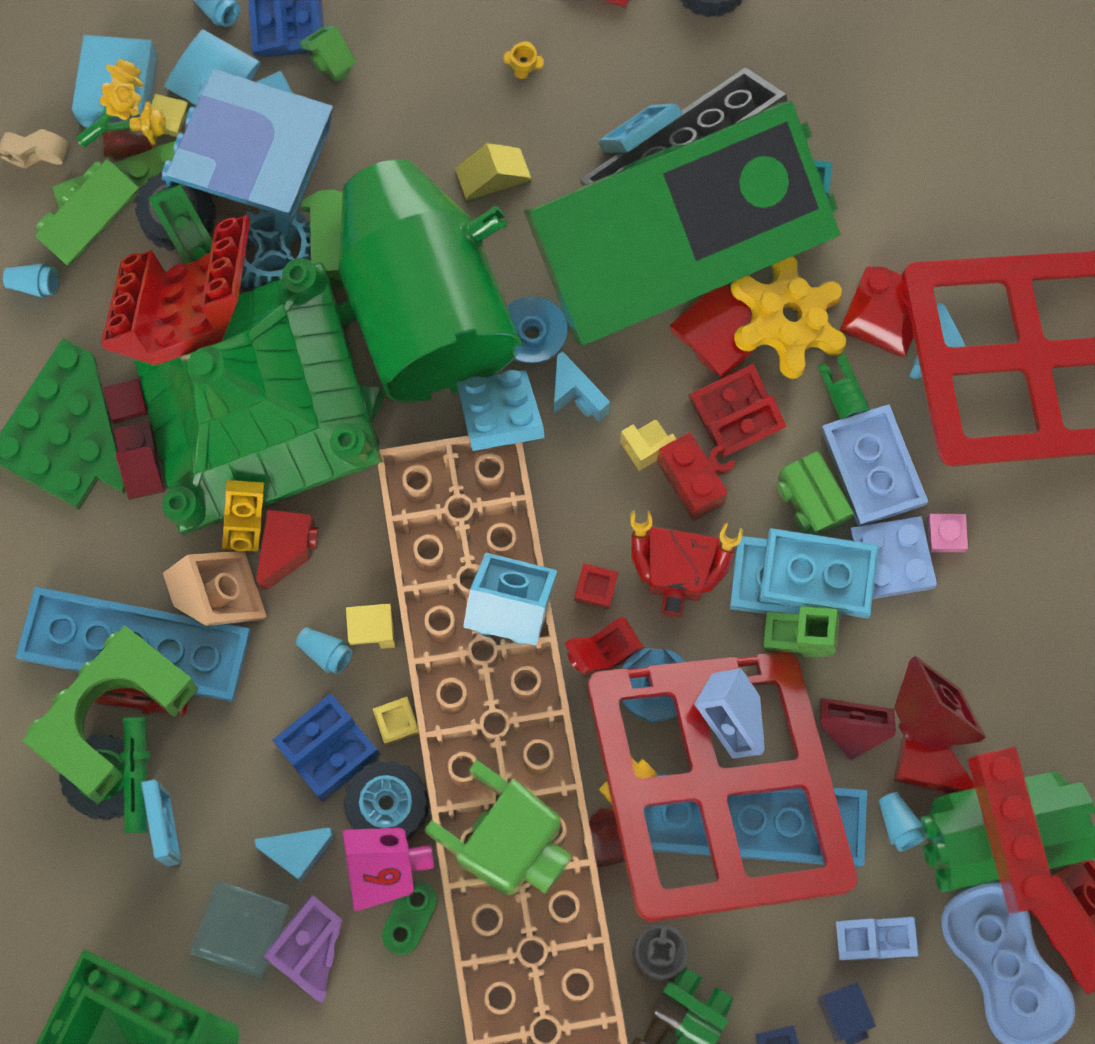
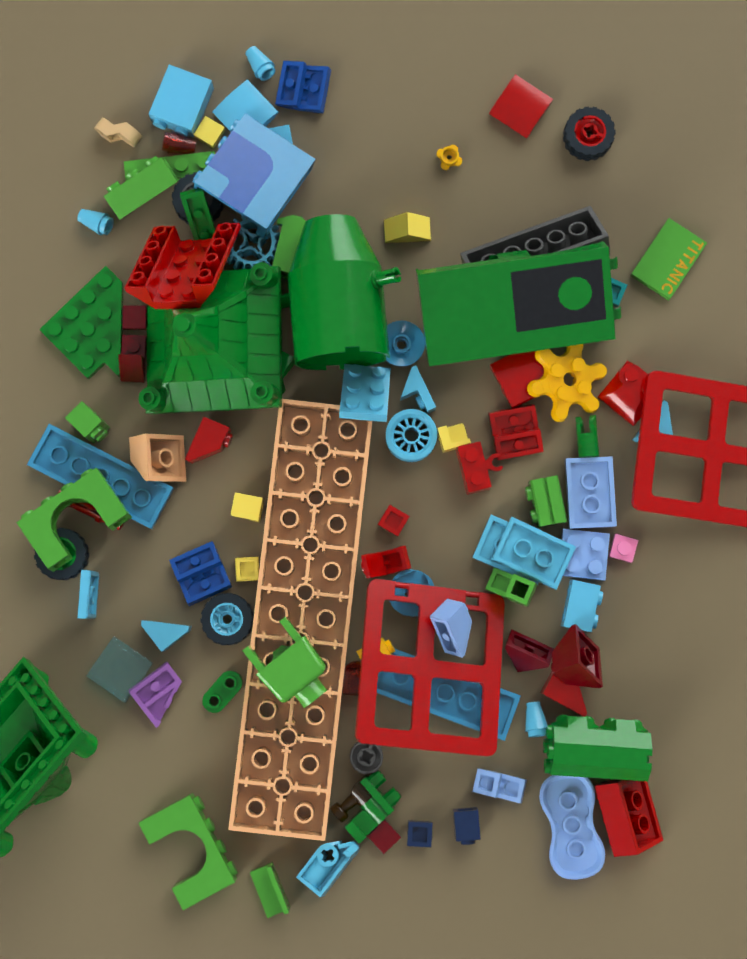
camera: 15 degrees right, 10 degrees up
(95, 566) = (88, 422): none -> bright green brick
(122, 101) = (178, 123): yellow plant -> none
(135, 772) = (80, 560): green pin -> none
(242, 515) = (187, 415): yellow slope -> none
(325, 650) = (215, 513): medium azure cone -> none
(329, 52) = (324, 119): bright green brick -> none
(382, 865) = (213, 657): dark pink torso -> none
(509, 599) = (335, 518): medium azure slope -> none
(597, 428) = (424, 420): none -> medium azure wheel
(639, 128) = (509, 228): medium azure tile -> none
(679, 562) = (449, 521): red torso -> none
(878, 115) = (668, 259): none -> bright green tile
(913, 629) = (581, 605): none -> medium azure brick
(1012, 830) = (596, 754): red brick -> none

